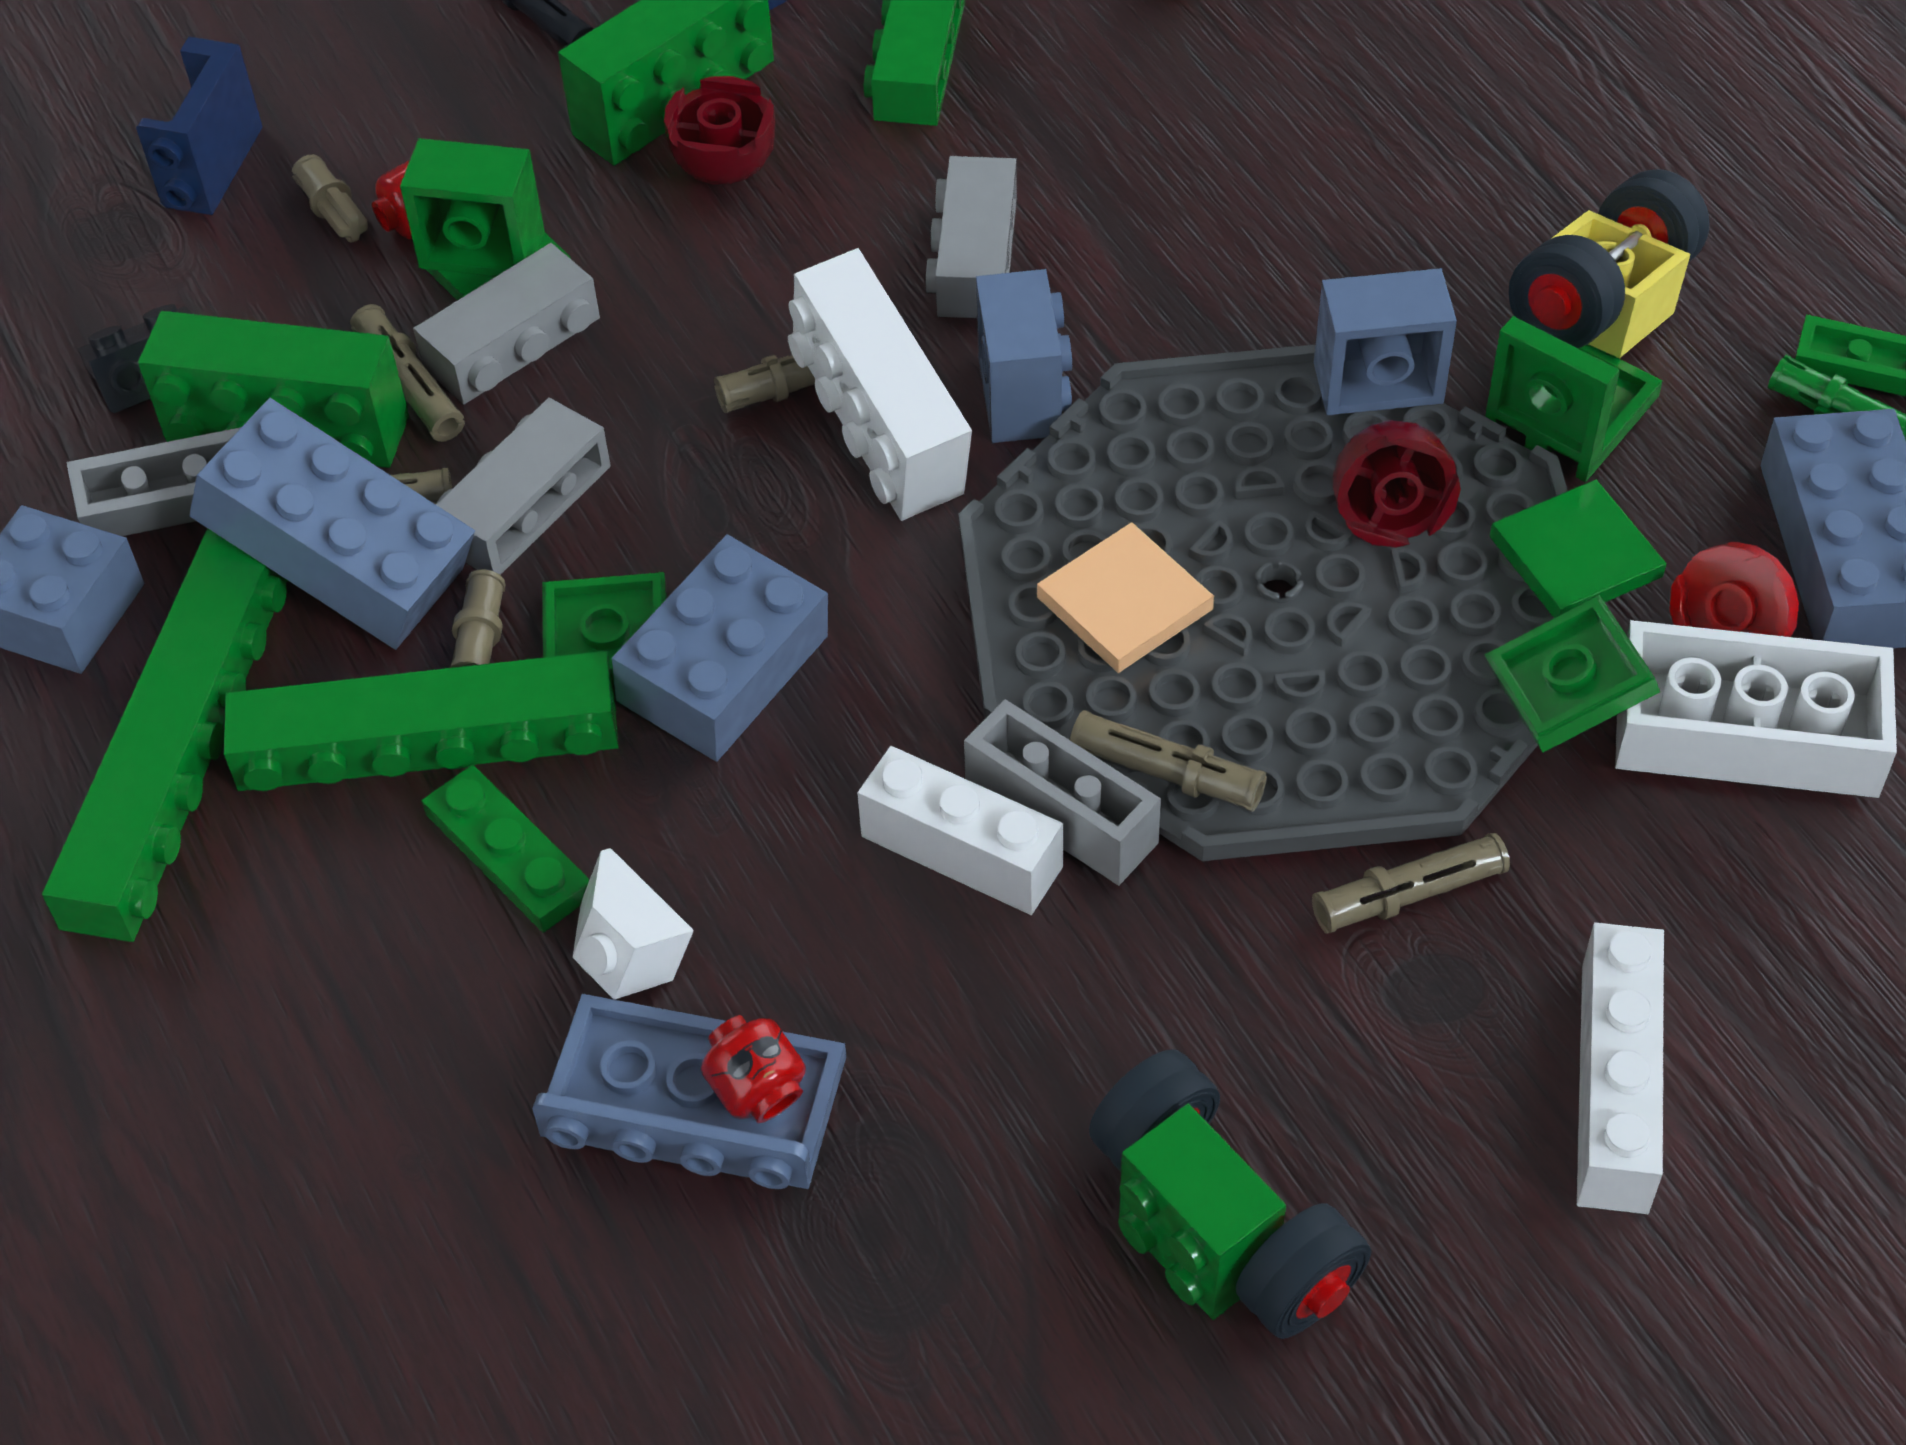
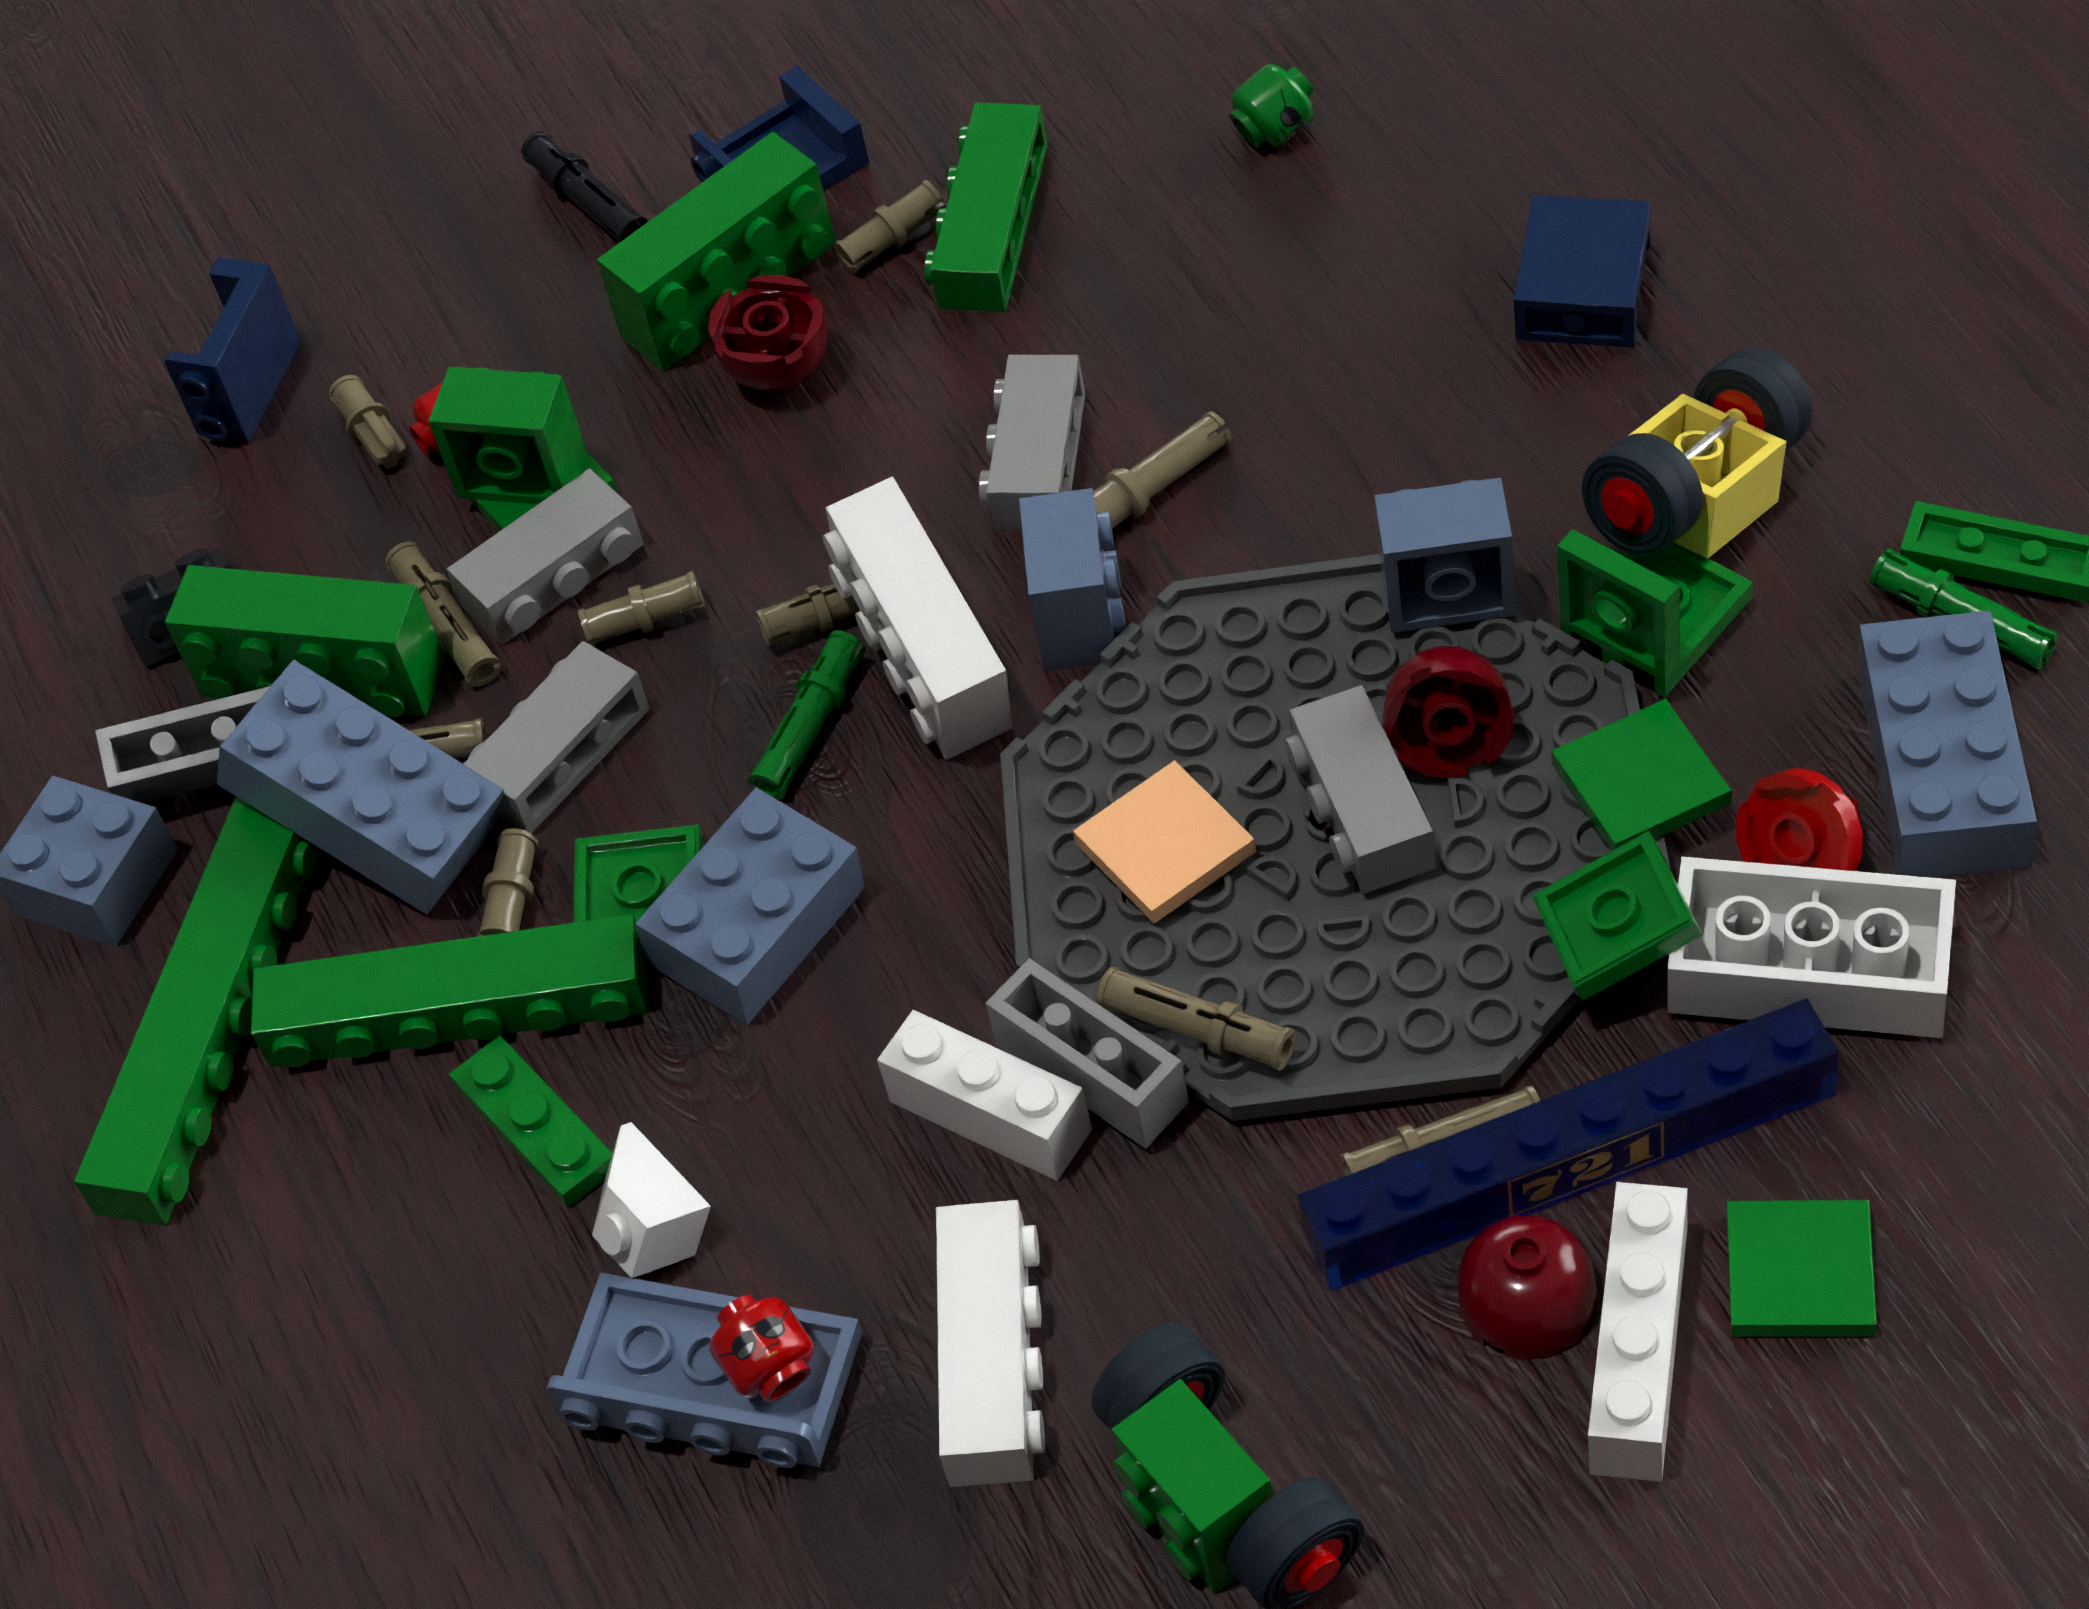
camera: 10 degrees right, 0 degrees up
(603, 373) = (641, 608): none -> dark tan pin
(776, 457) = (816, 697): none -> green pin
(826, 45) = (889, 226): none -> dark tan pin
(973, 1070) = (985, 1344): none -> white brick
(1100, 261) = (1128, 491): none -> dark tan pin
(1314, 553) = (1360, 790): none -> light grey brick
(1479, 106) = (1582, 270): none -> dark blue panel
(1504, 1023) = (1527, 1287): none -> dark red cylinder
(1533, 889) = (1569, 1143): none -> clear blue brick
(1766, 1011) = (1801, 1268): none -> green tile

